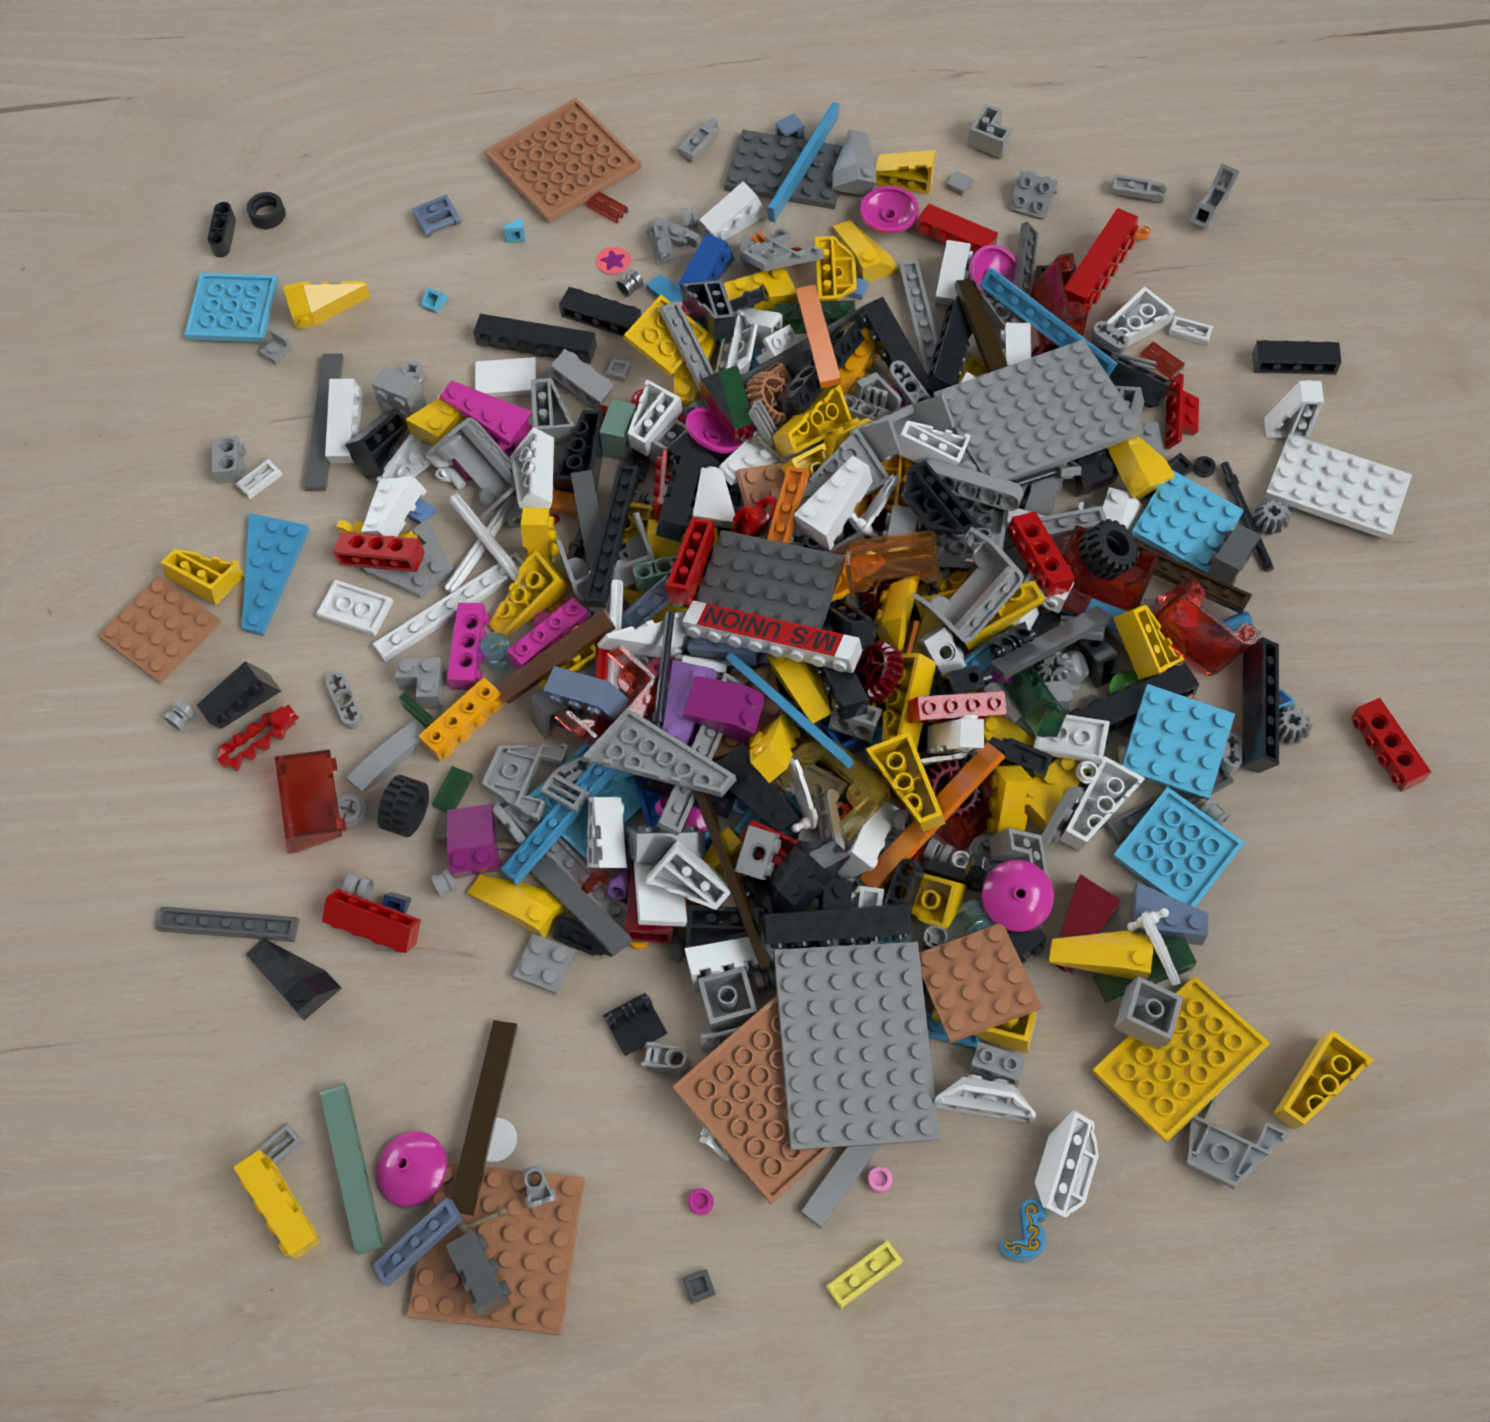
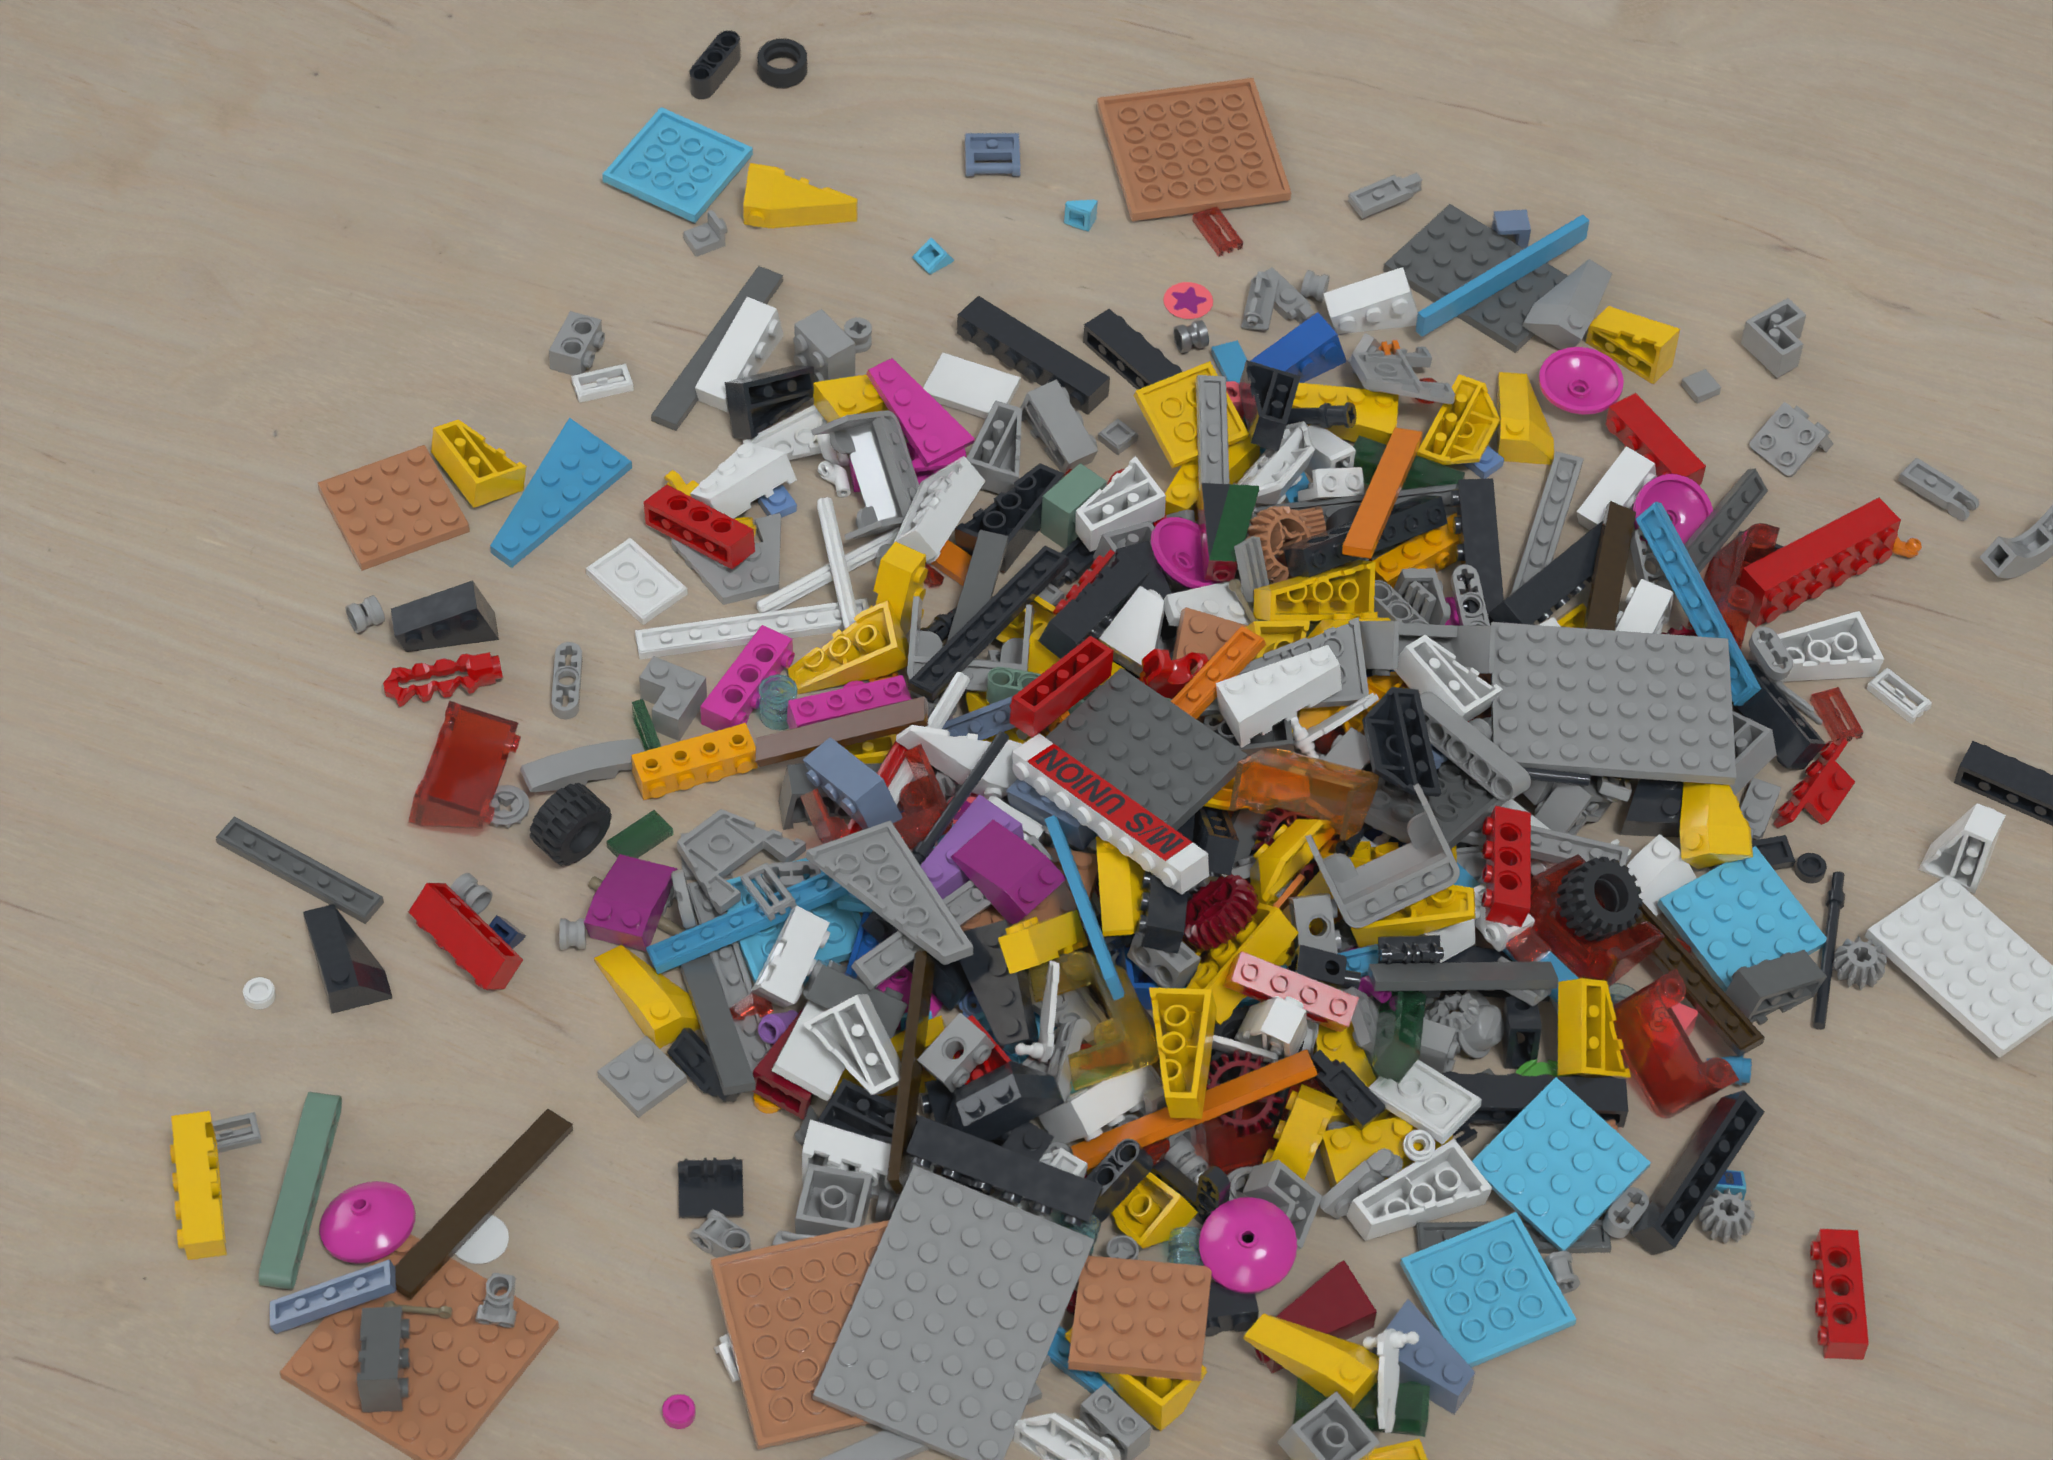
camera: 20 degrees right, 10 degrees down
(245, 1030) = (259, 993): none -> white tile

